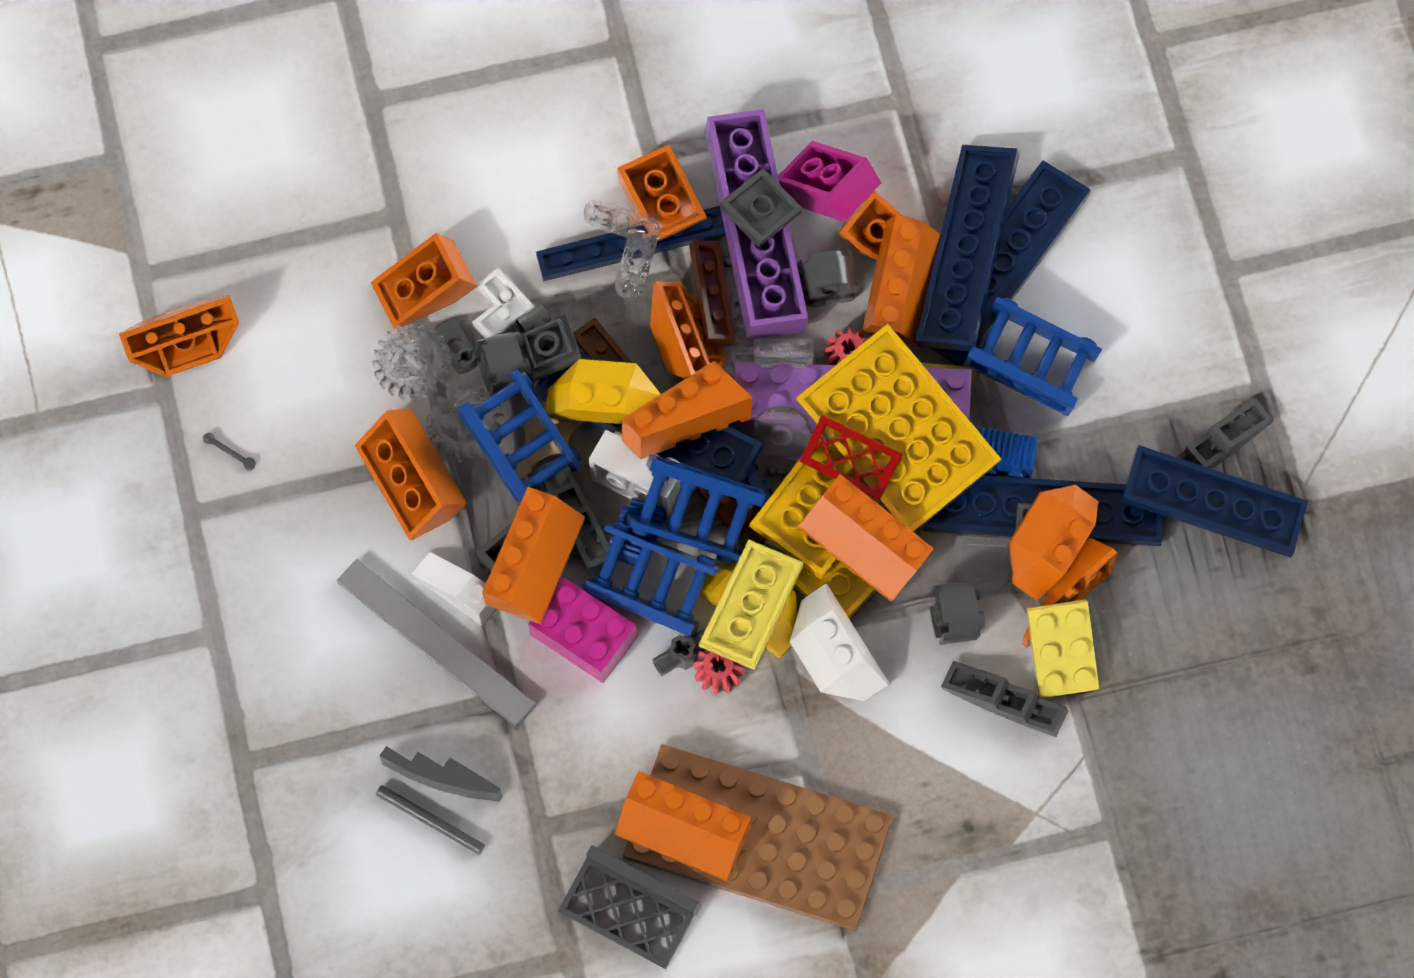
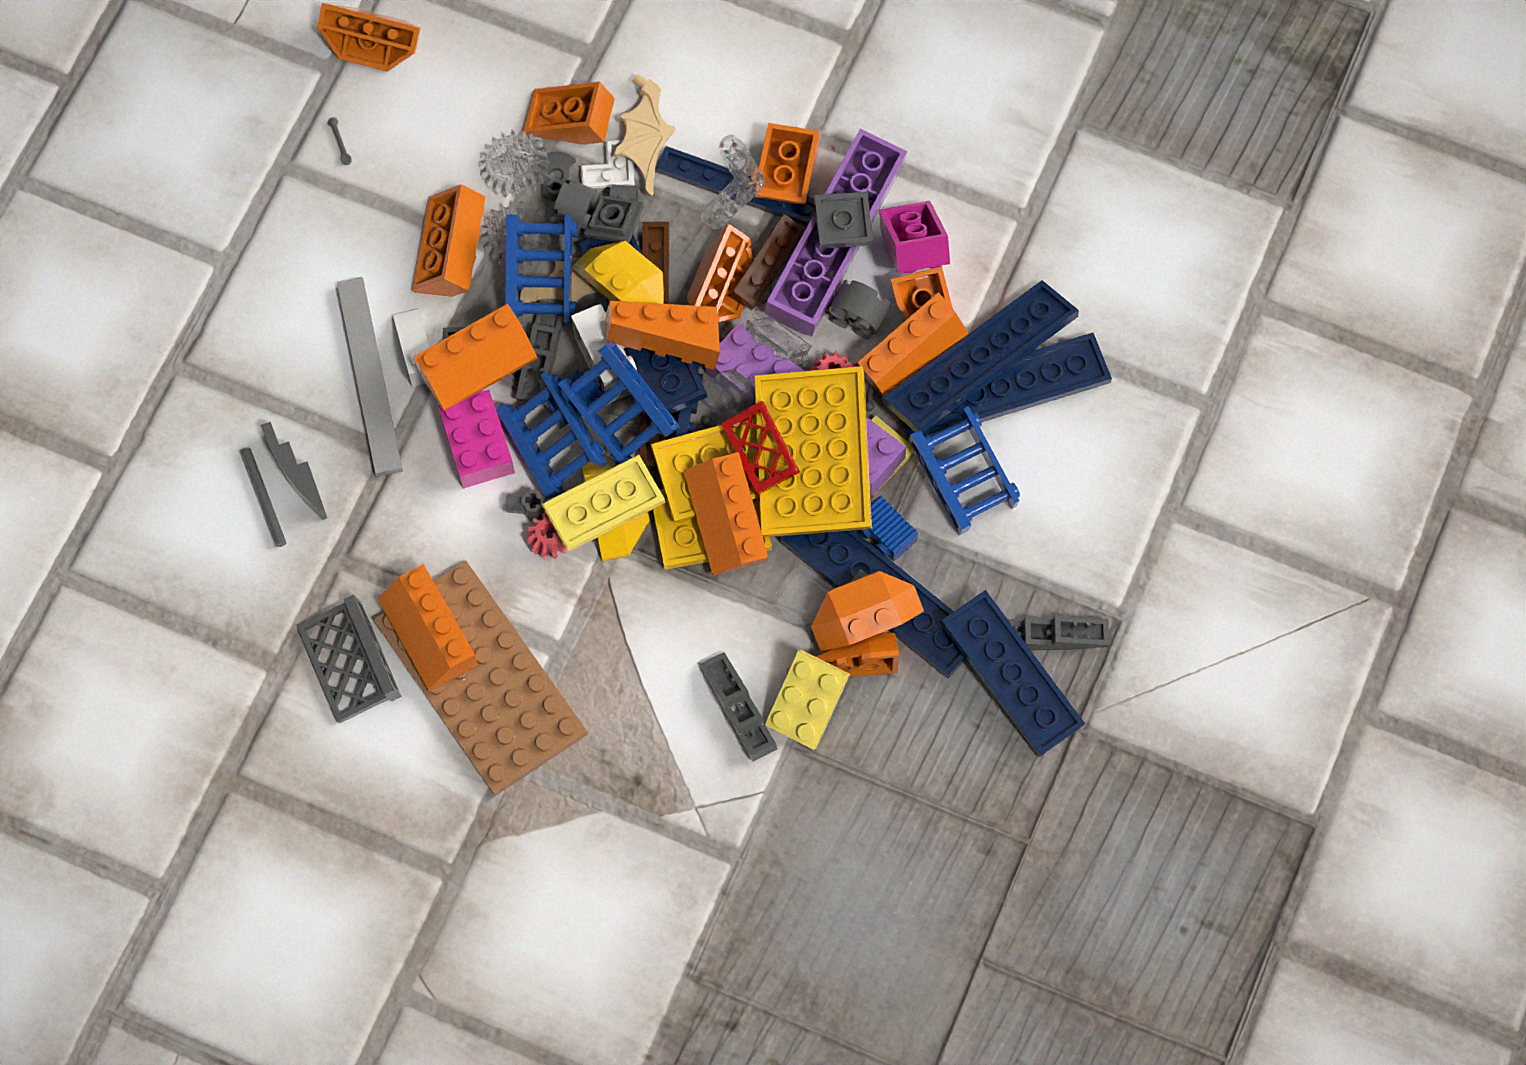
camera: 35 degrees right, 0 degrees up
(506, 252) = (645, 132): none -> tan animal
(834, 649) = (643, 581): white wedge -> none
(956, 612) = (750, 616): dark grey brick -> none

